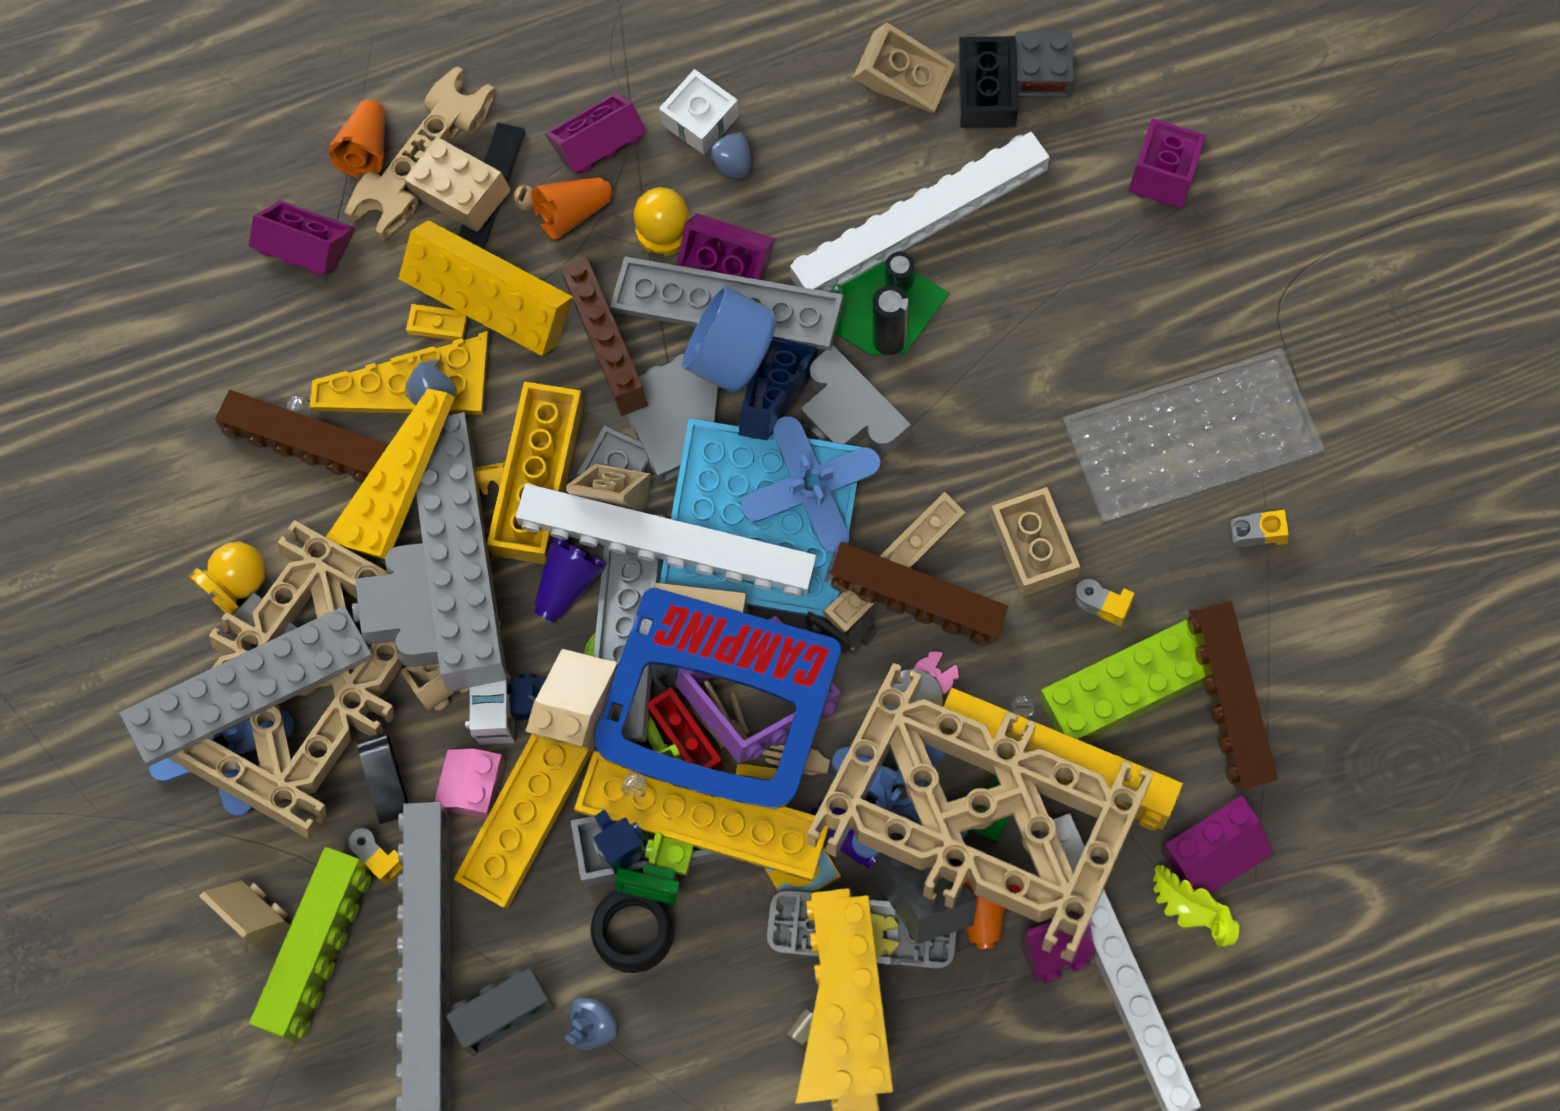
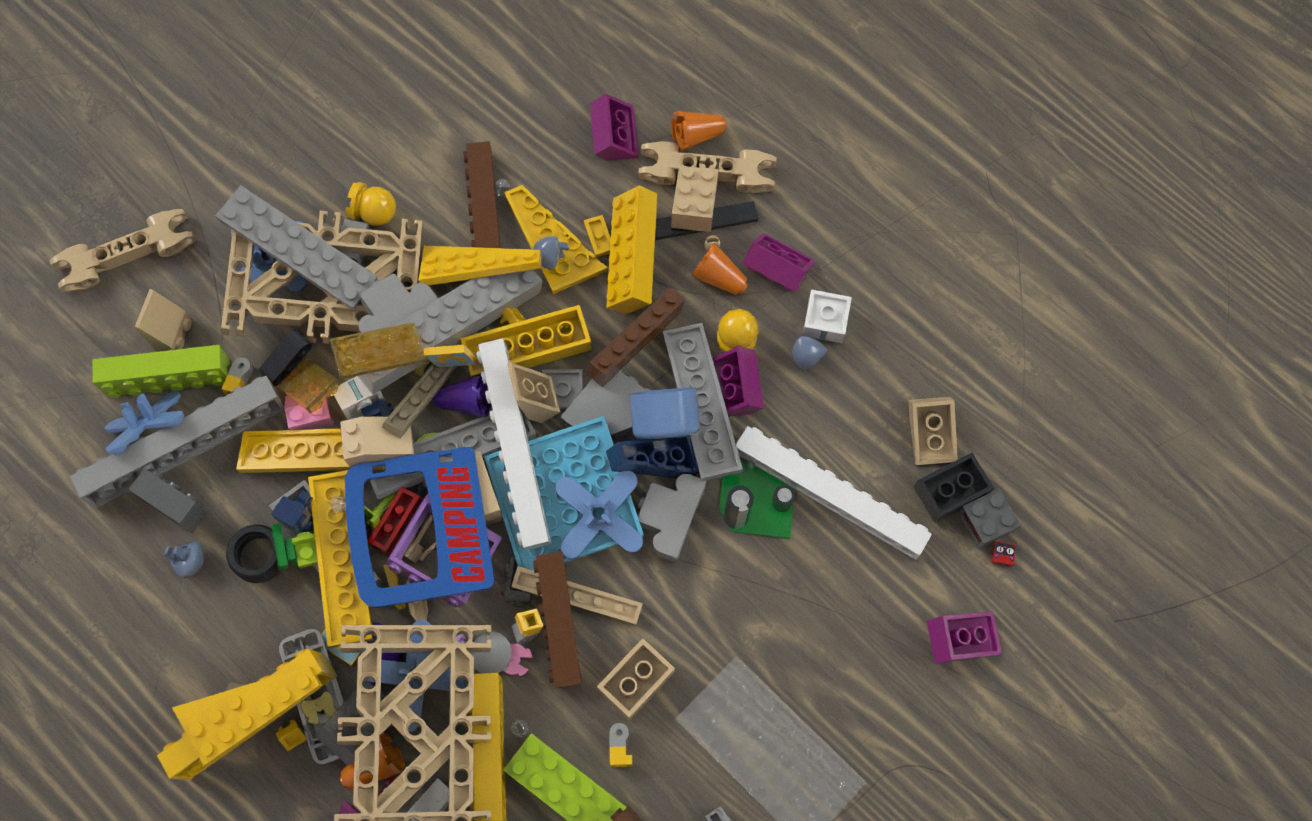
camera: 55 degrees right, 0 degrees up
(91, 989) = (87, 263): none -> tan piece
(379, 1008) = (150, 417): none -> medium blue piece
(445, 758) = (309, 385): none -> clear yellow tile
(460, 636) = (377, 350): none -> clear yellow tile
(510, 559) = (450, 356): none -> yellow tile
(536, 622) = (417, 399): none -> dark tan tile
(894, 987) = (291, 735): none -> yellow tile
(905, 639) = (525, 627): none -> yellow leg
(1090, 72) = (1003, 553): none -> tile

